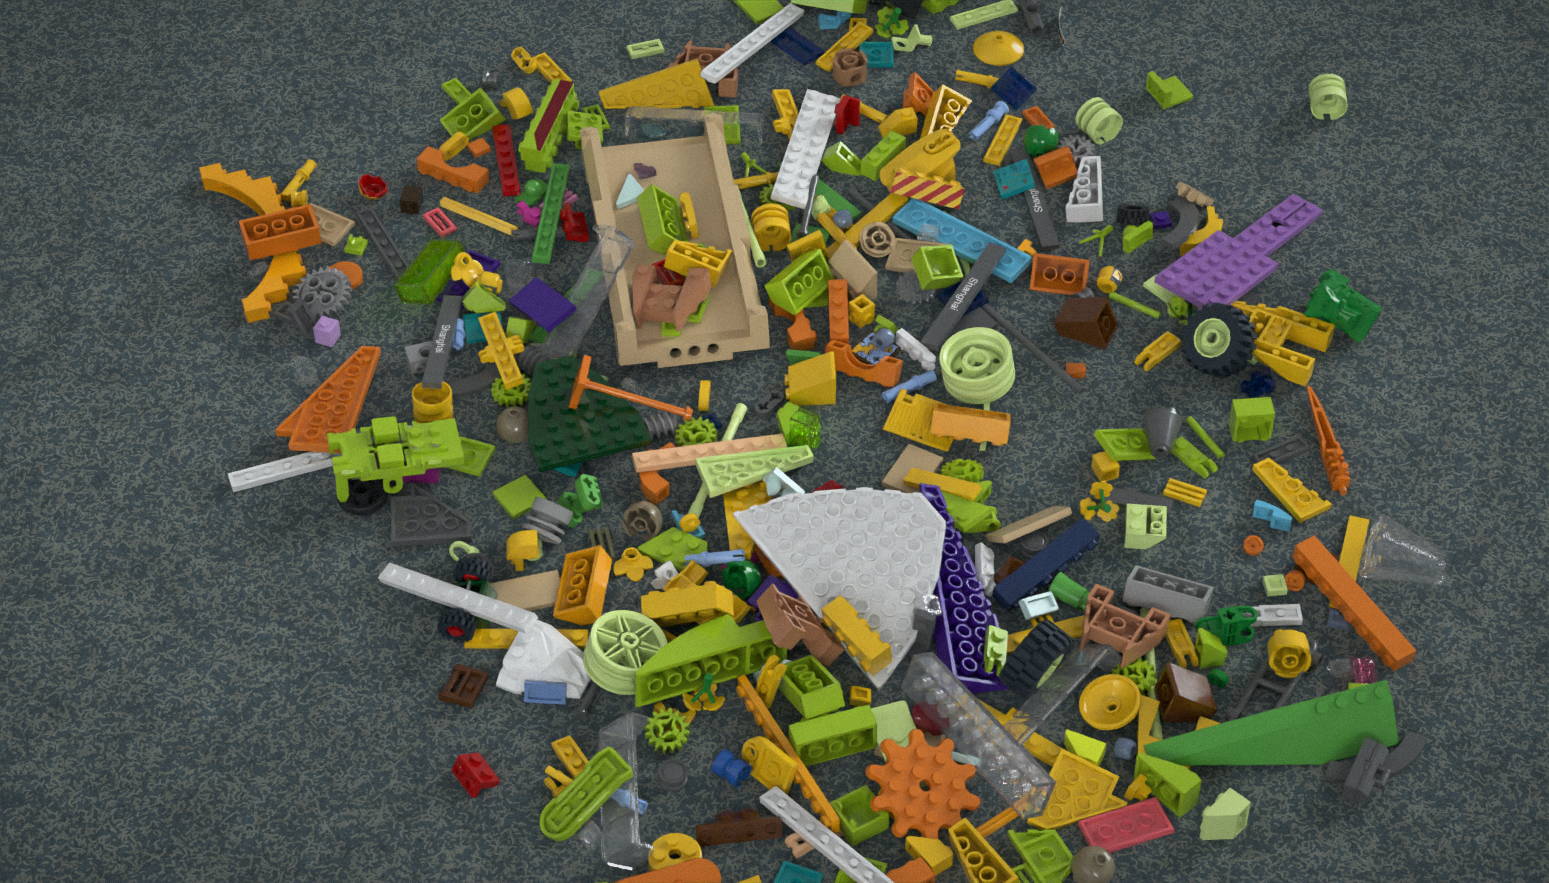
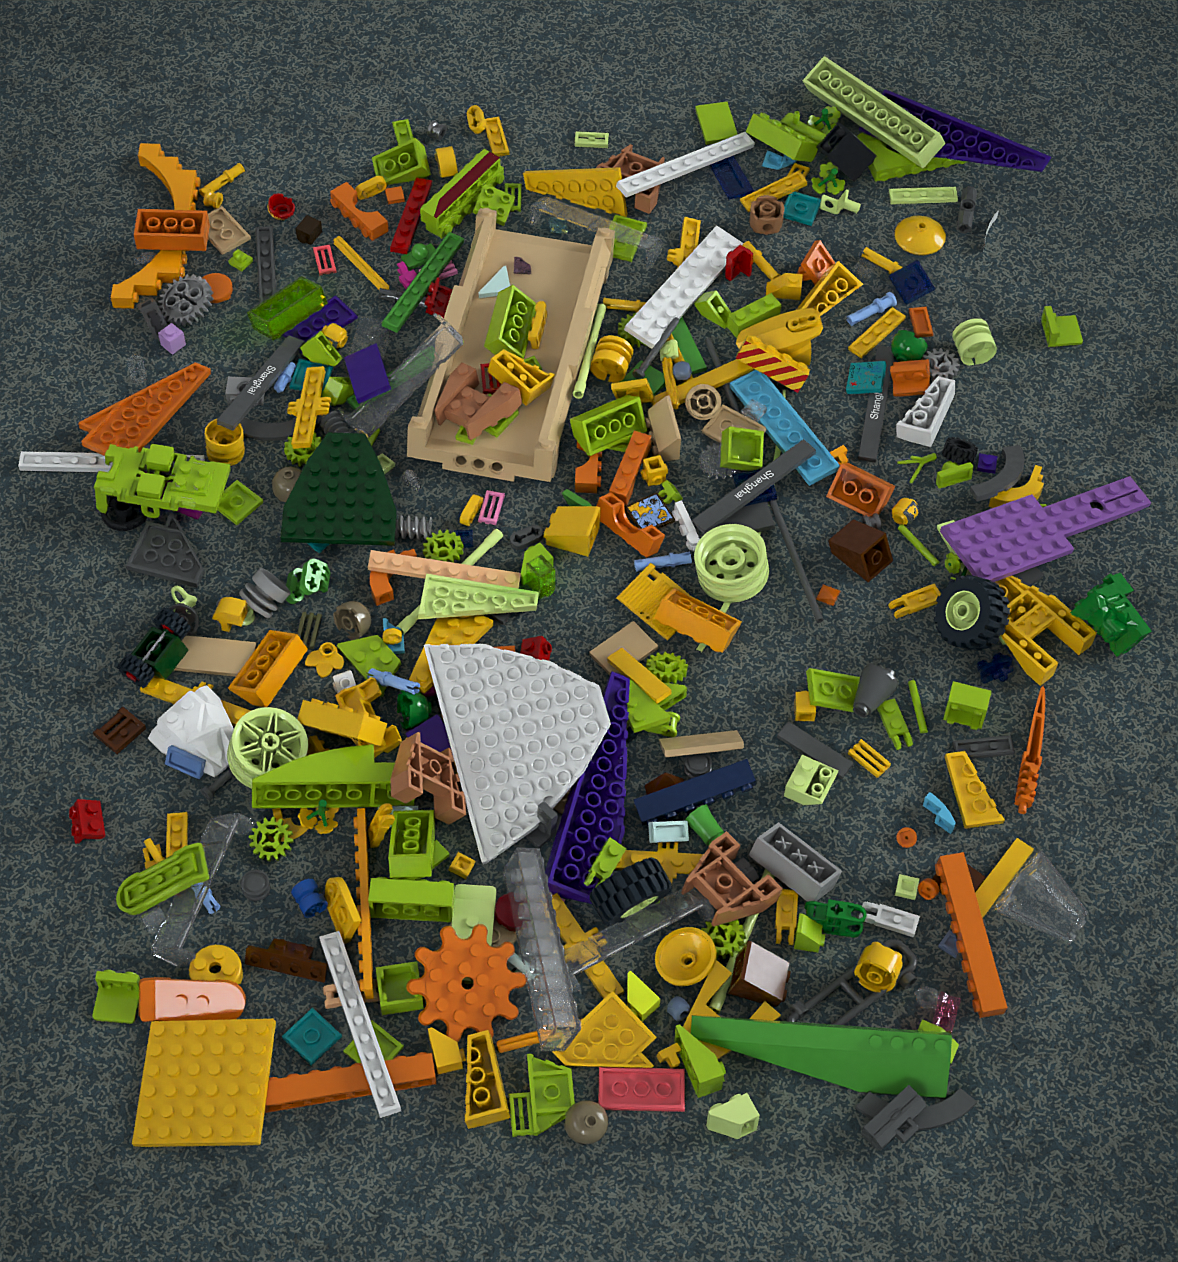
camera: 20 degrees right, 10 degrees up
(458, 597) = (146, 645): white plate -> none
(466, 272) = (317, 318): yellow plate -> none
(517, 496) = (260, 555): lime tile -> none
(582, 383) = (352, 466): orange tile -> none
(722, 400) = (489, 520): none -> bright pink tile
(750, 163) = (628, 285): lime plant -> none
(780, 483) = (488, 623): light aqua tile -> none
(857, 635) = (479, 806): yellow wedge -> none
(883, 338) = (659, 506): sand blue piece -> none
(928, 603) = (558, 799): clear slope -> none
(985, 567) = (639, 774): white hinge -> none
(1106, 510) = (783, 752): yellow plant -> none
(1193, 195) = (1030, 447): tan hinge -> none
(1218, 678) = (803, 966): green tile -> none

